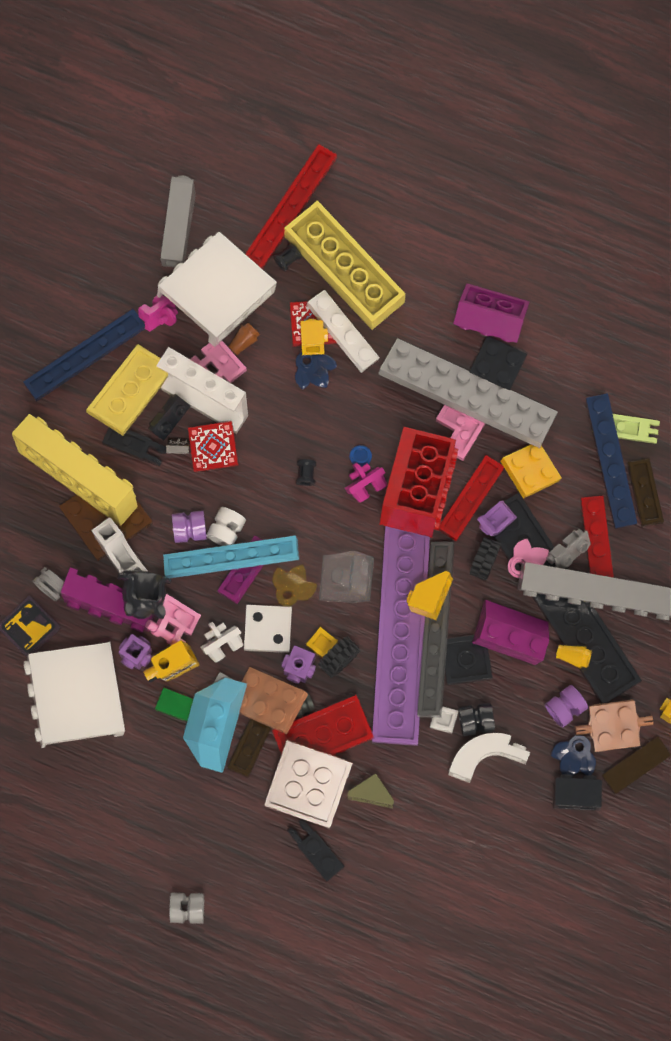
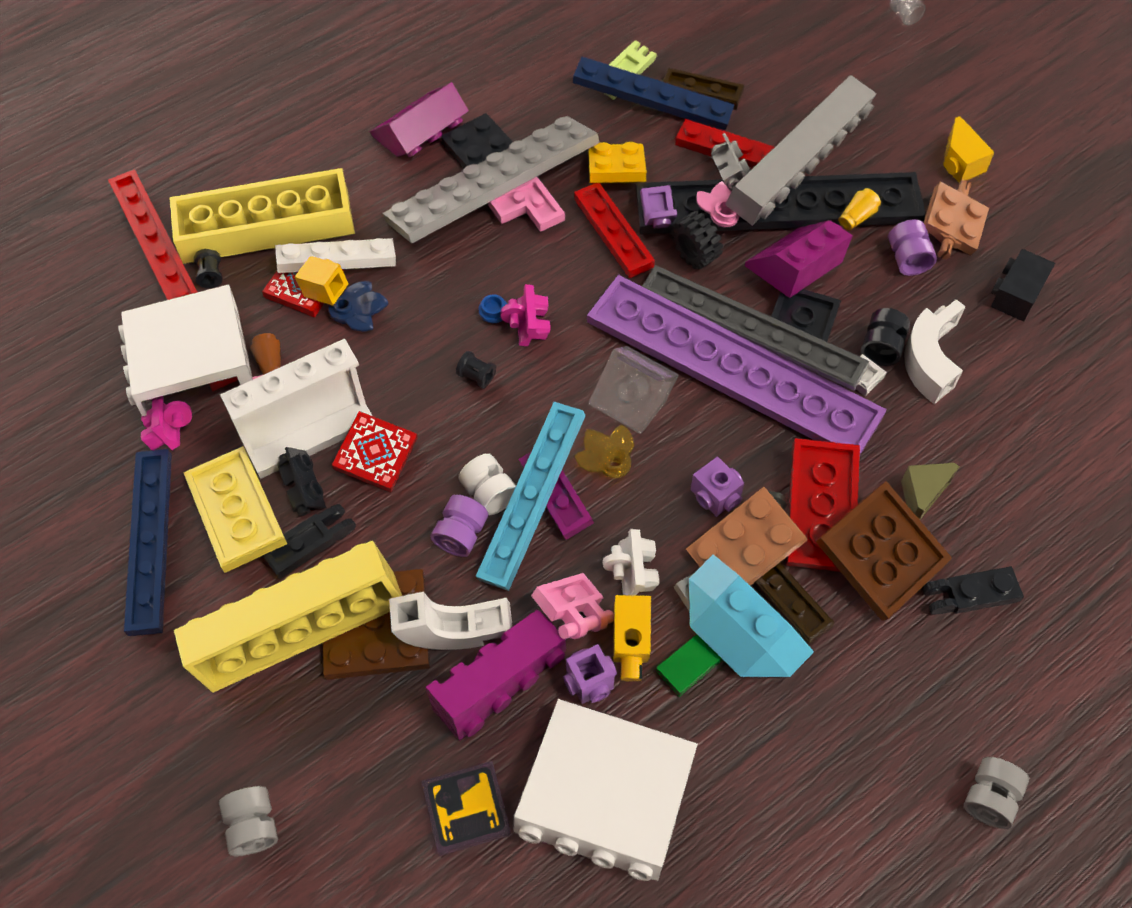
camera: 60 degrees left, 15 degrees down
(51, 582) = (425, 740): light grey wheel -> none
(143, 593) = (523, 610): black hair -> none
(178, 221) = (71, 348): light grey slope -> none
(178, 445) = (346, 488): tile -> none
(267, 628) = (646, 505): white tile -> none
(321, 642) = (699, 451): yellow plate -> none
(339, 657) = (733, 436): black tyre -> none
(419, 482) = (569, 254): red brick -> none
(430, 595) = (714, 306): yellow slope -> none
(575, 760) = (975, 272): dark blue plate -> none
(636, 765) = (1008, 221): dark brown tile -> none

